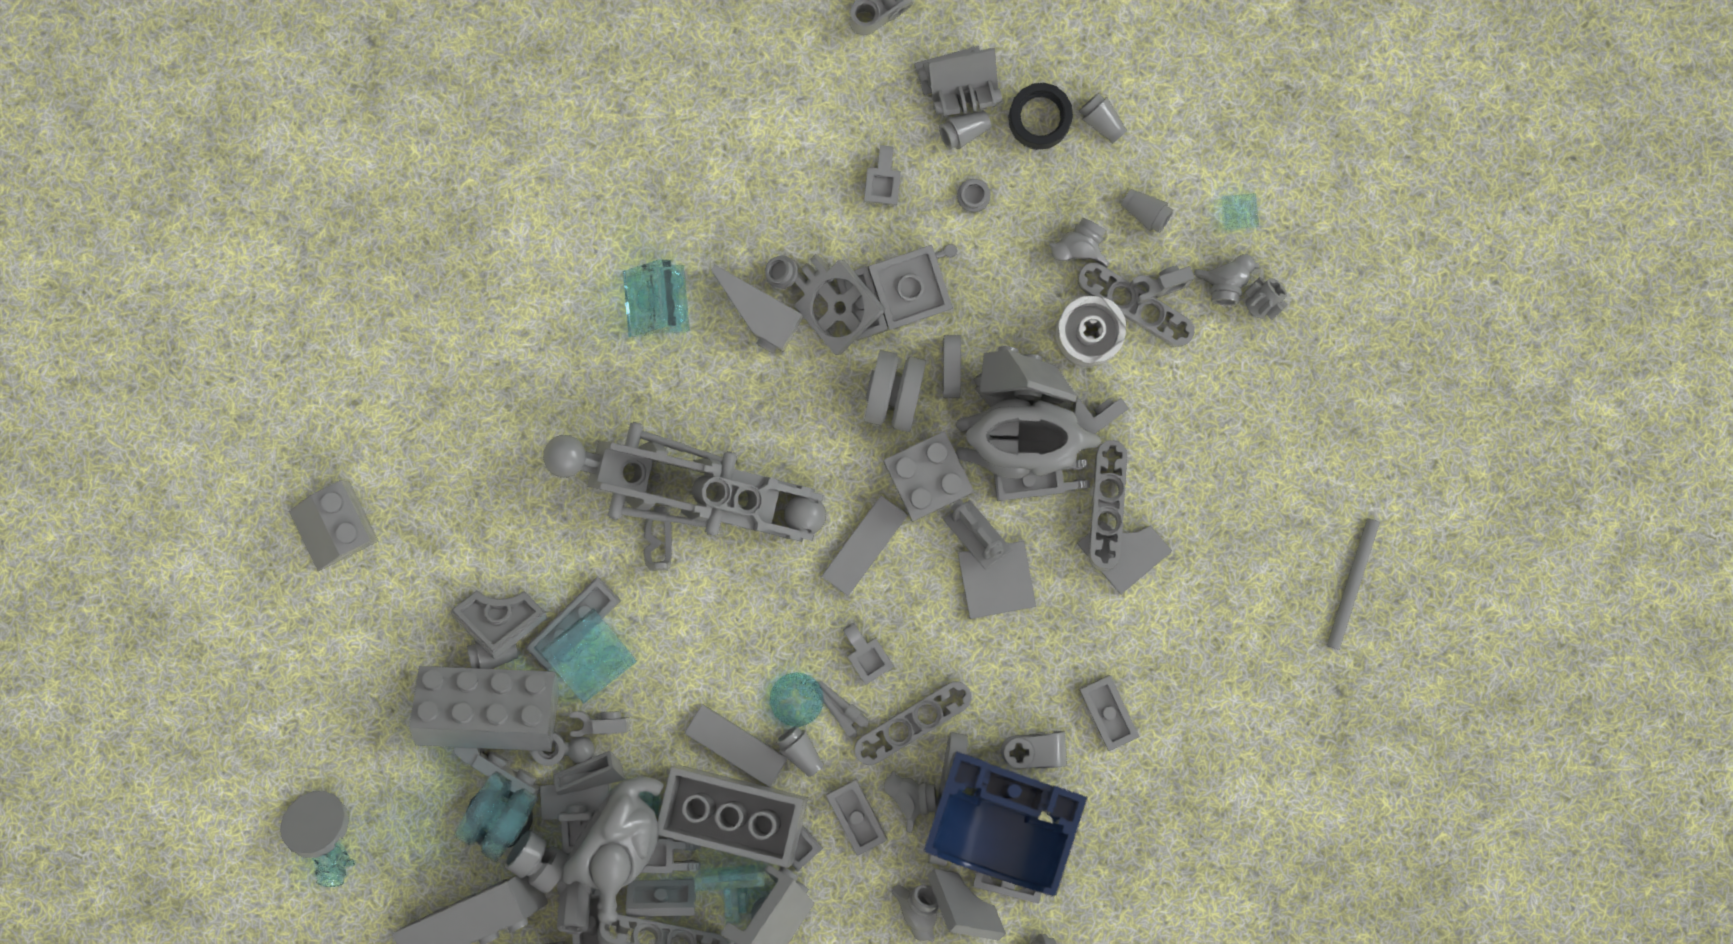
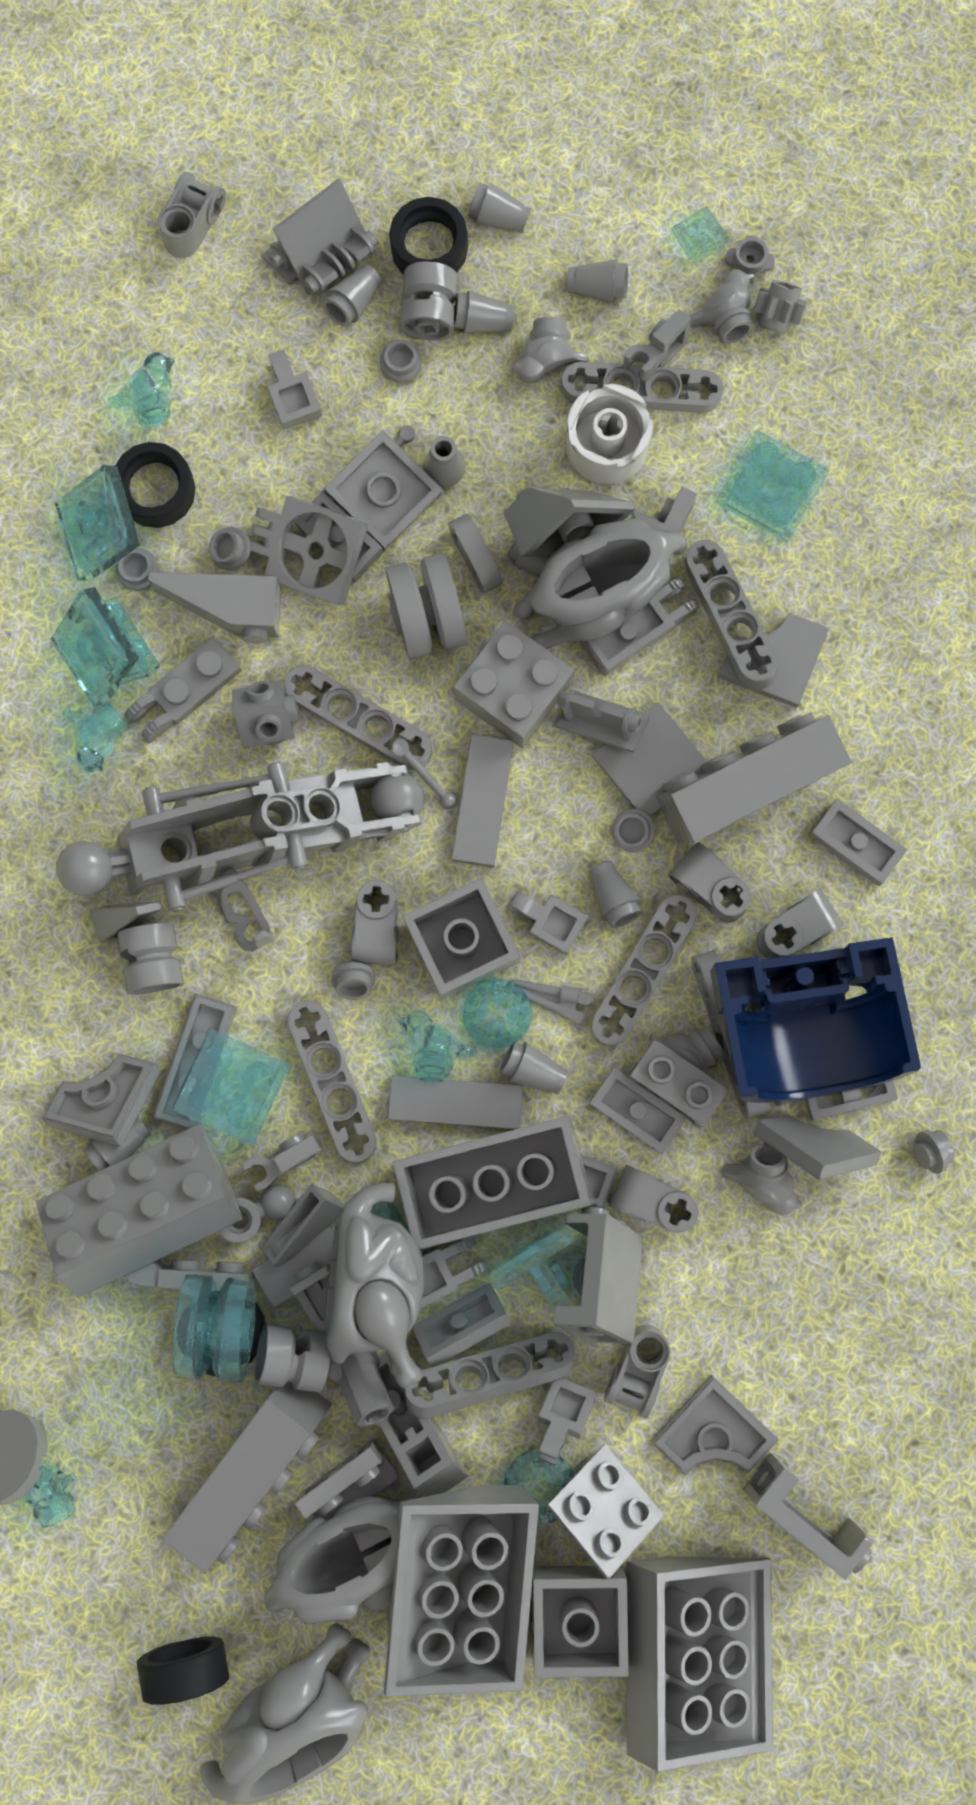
camera: 30 degrees left, 5 degrees down
(570, 497) = (117, 917): none -> light grey piece
(578, 538) = (150, 958): none -> light grey wheel
(619, 359) = (96, 735): none -> clear light blue animal
(656, 686) = (326, 1083): none -> light grey beam
(696, 208) = (97, 523): none -> clear light blue plate
(700, 356) = (185, 688): none -> light grey hinge
(708, 251) = (134, 569): none -> light grey plate
(709, 625) = (353, 980): none -> light grey plate
(739, 700) = (433, 1047): none -> clear light blue animal
(741, 600) = (375, 932): none -> light grey piece
(743, 407) = (264, 713): none -> light grey brick
(747, 172) = (184, 497): none -> black tyre
(782, 125) = (148, 391): none -> clear light blue animal
(797, 638) = (461, 938): none -> light grey brick
(811, 439) = (361, 714): none -> light grey beam
(825, 482) = (401, 748): none -> light grey hinge
(830, 880) = (646, 1199): none -> light grey piece
(892, 815) = (678, 1083): none -> light grey bracket
(919, 662) = (614, 896): none -> light grey cone
(958, 622) = (633, 830): none -> light grey plate
(960, 297) = (444, 462): none -> light grey cone
(990, 682) = (706, 879): none -> light grey piece
(1024, 156) = (429, 301): none -> light grey wheel
(1049, 191) = (482, 314): none -> light grey cone
(1056, 632) = (757, 777): none -> light grey brick
(1190, 426) = (772, 486): none -> clear light blue plate
(1271, 241) = (754, 248): none -> light grey plate

